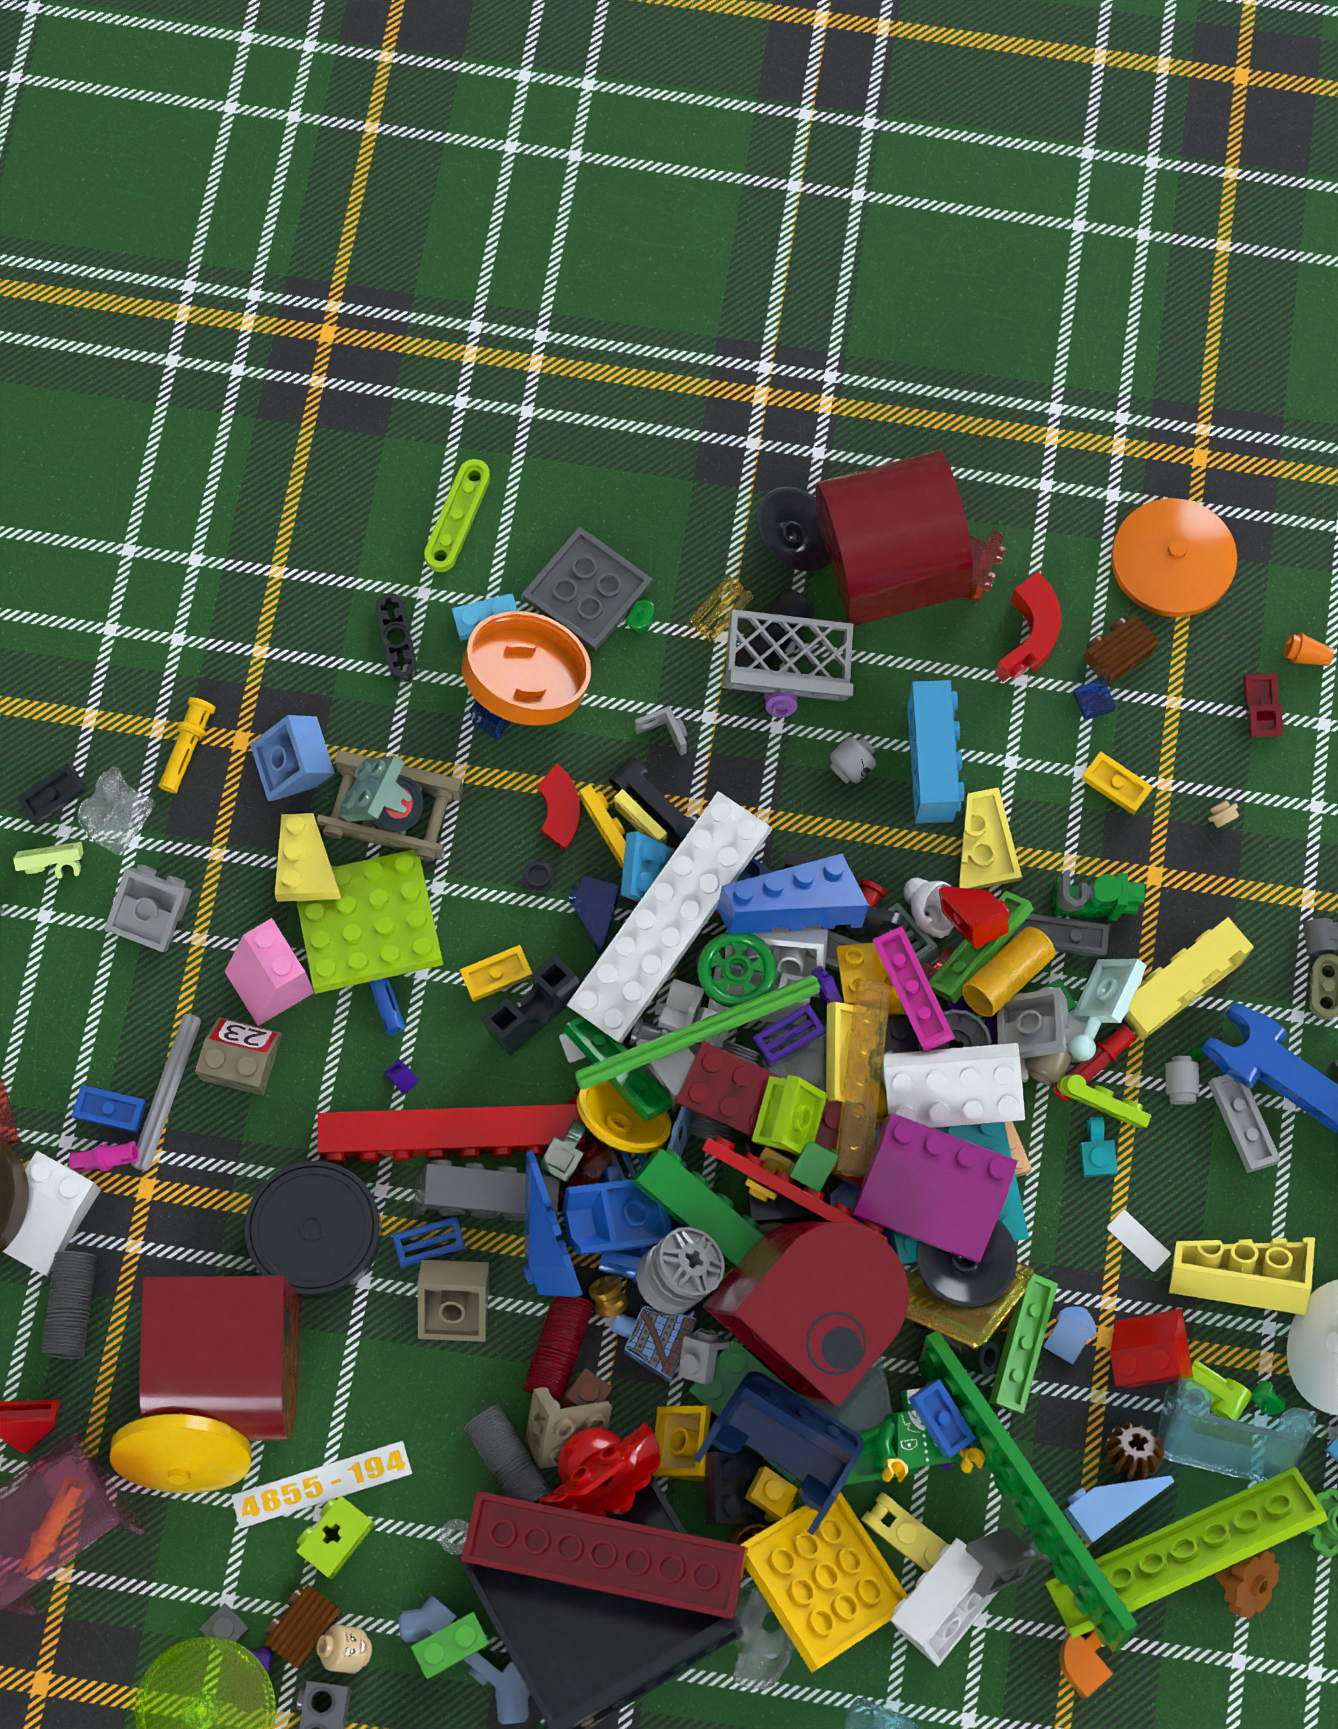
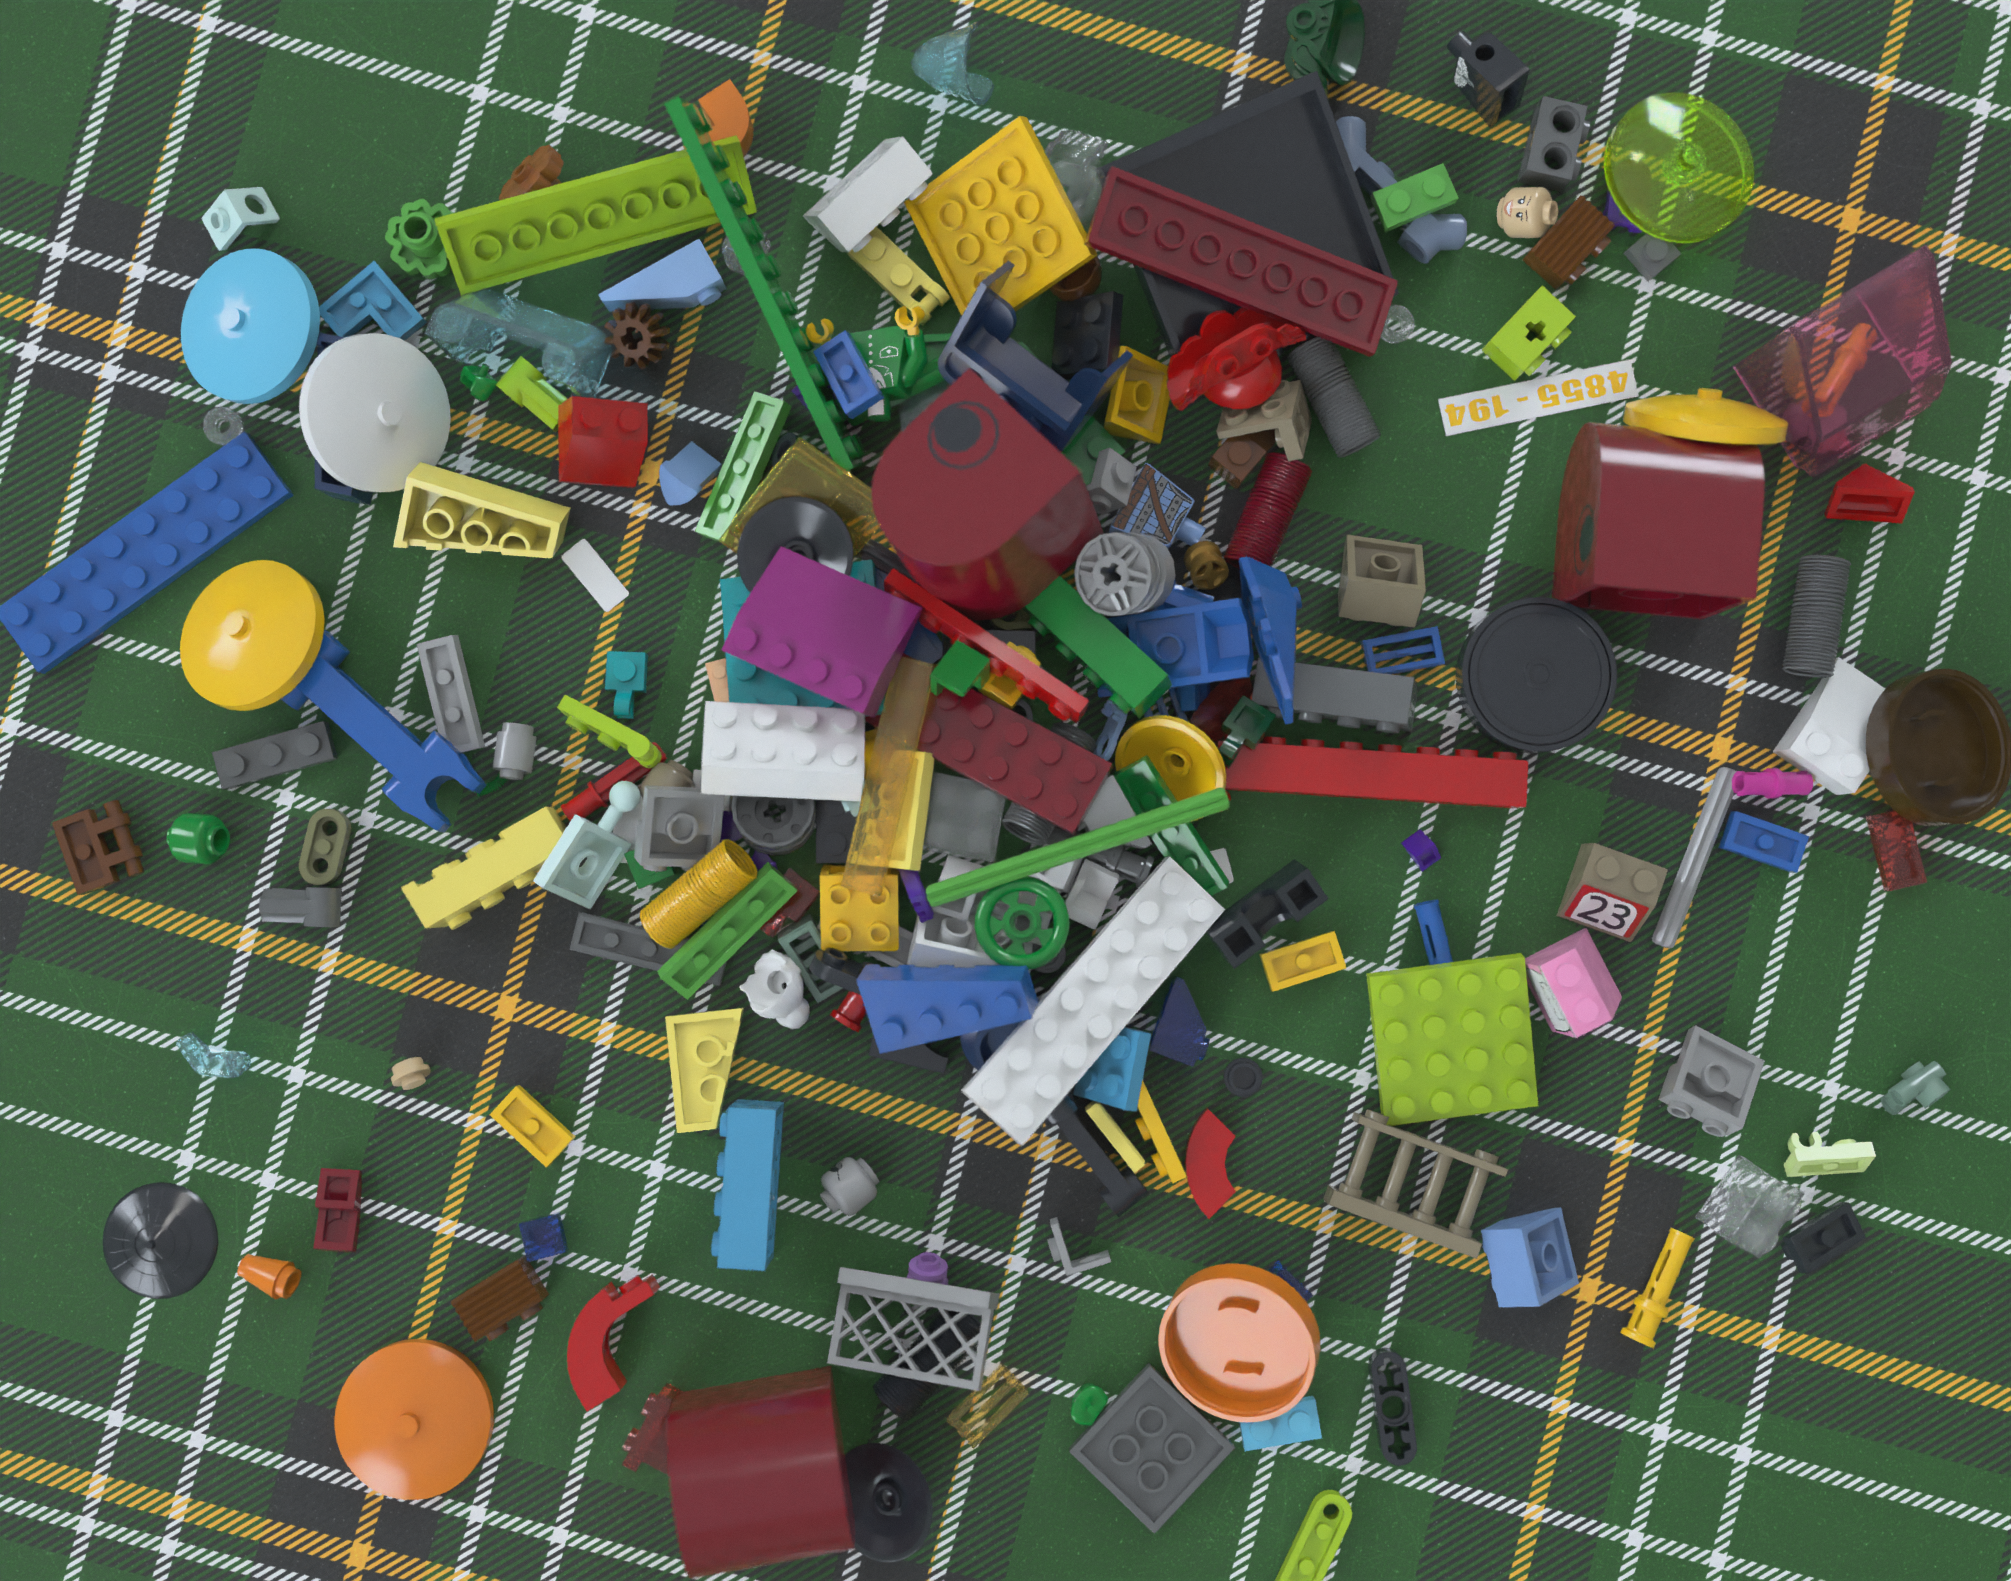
camera: 175 degrees left, 15 degrees up
(303, 862) = (1526, 1120): light yellow wing -> none
(383, 796) = (1428, 1187): sand green plate -> none
(765, 1049) = (939, 853): dark purple tile -> none
(772, 1494) = (1046, 325): yellow bracket -> none
(789, 1114) = (982, 730): lime bracket -> none
(913, 989) = (815, 876): dark pink plate -> none
(975, 914) = (728, 966): red slope -> none
(1003, 1558) = (804, 226): dark grey panel -> none
(1106, 897) = (564, 979): green hips -> none

